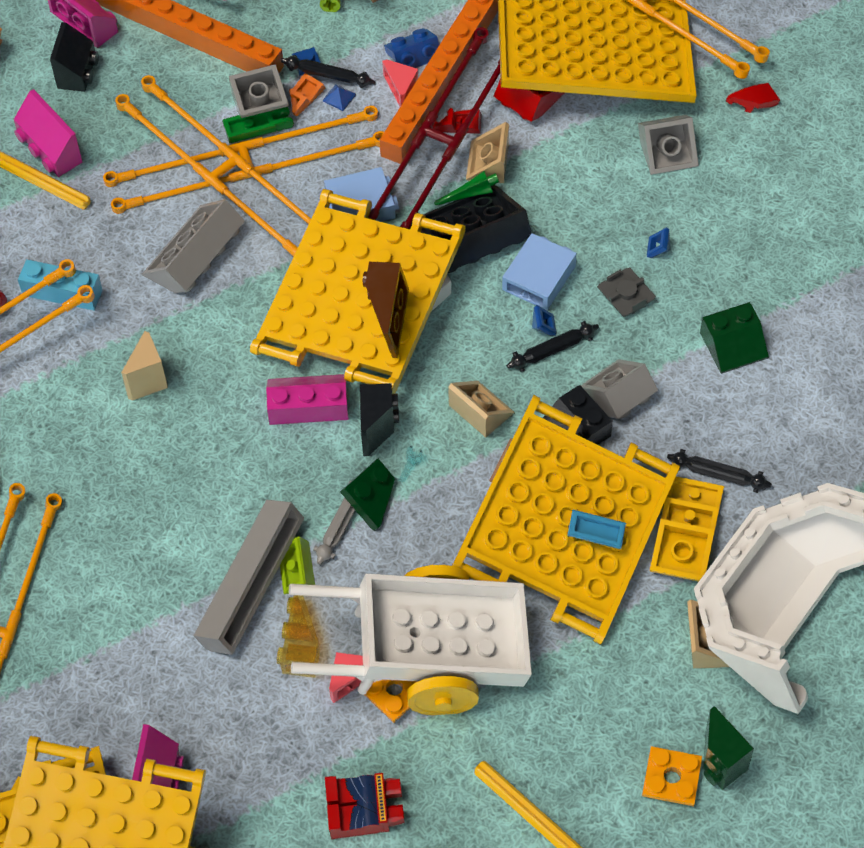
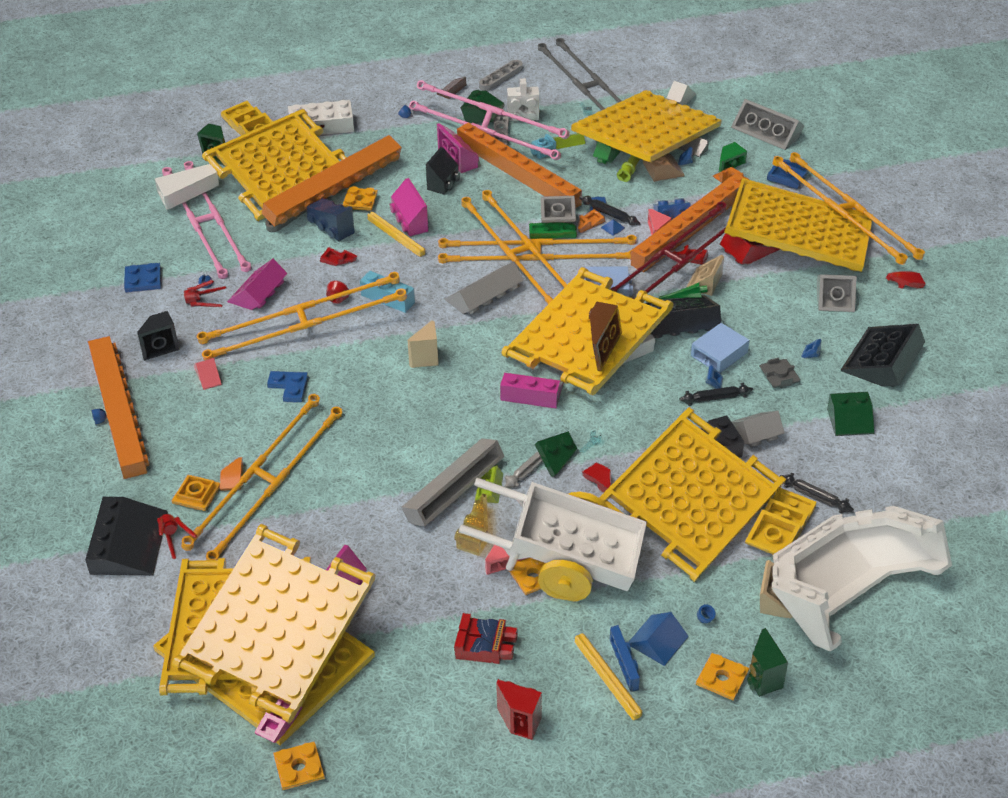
camera: 15 degrees right, 15 degrees down
(377, 415) = (575, 405): black slope -> none
(437, 515) = (600, 475): none -> red slope
(478, 406) = (648, 416): tan slope -> none
(541, 776) = (623, 654): none -> blue plate
(578, 740) = (659, 637): none -> blue slope
(596, 529) = (711, 501): dark azure tile -> none
(631, 687) = (708, 611): none -> blue hinge
(754, 229) = (885, 354): none -> black slope

